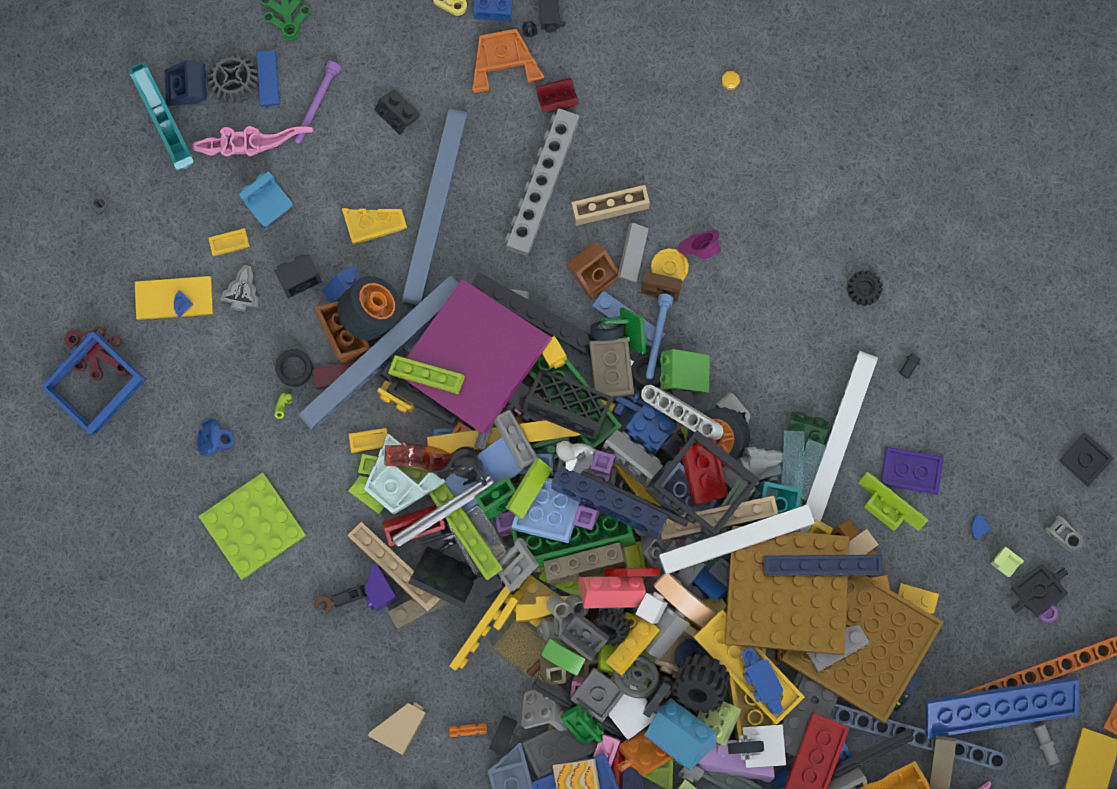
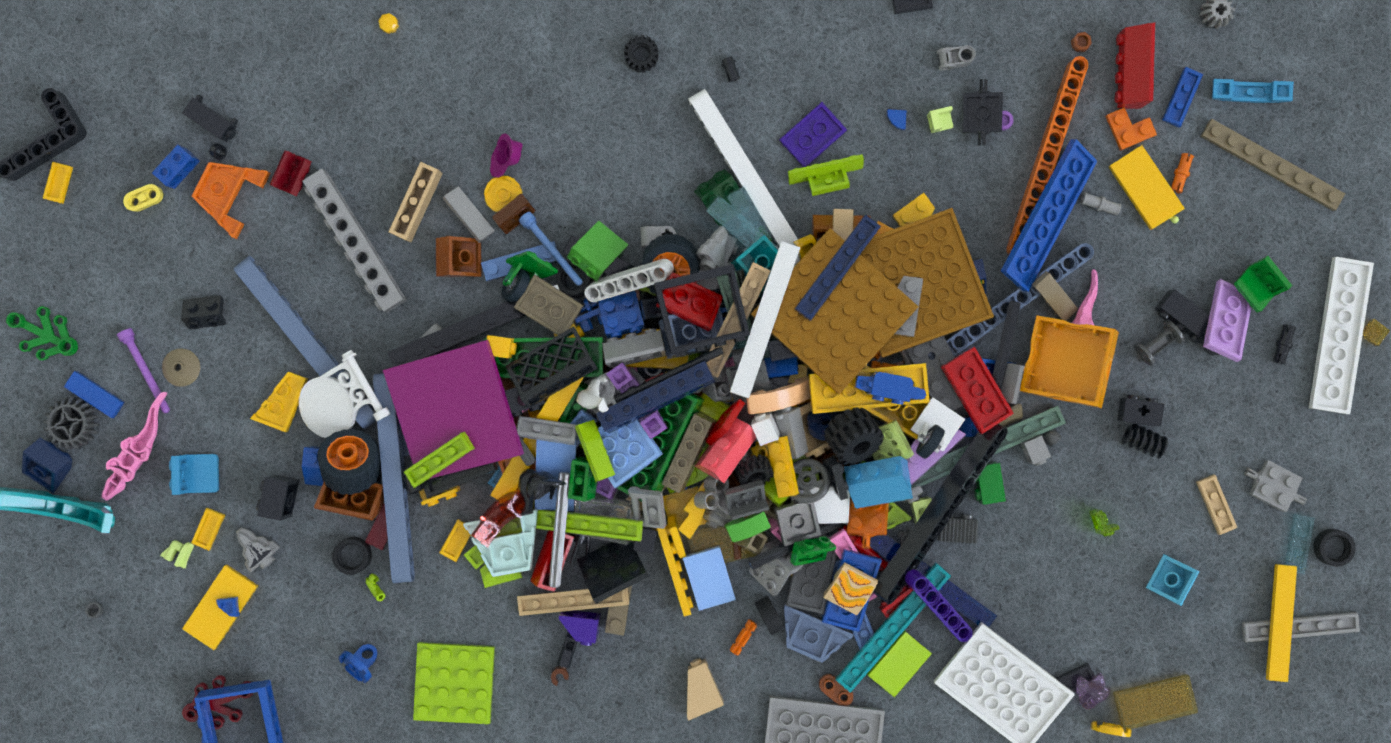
camera: 50 degrees left, 10 degrees up
(197, 238) = (185, 551): none -> yellowish green piece
(340, 135) = (189, 367): none -> dark tan dish
(402, 260) = (330, 405): none -> white piece
(495, 663) = (709, 578): none -> light blue tile

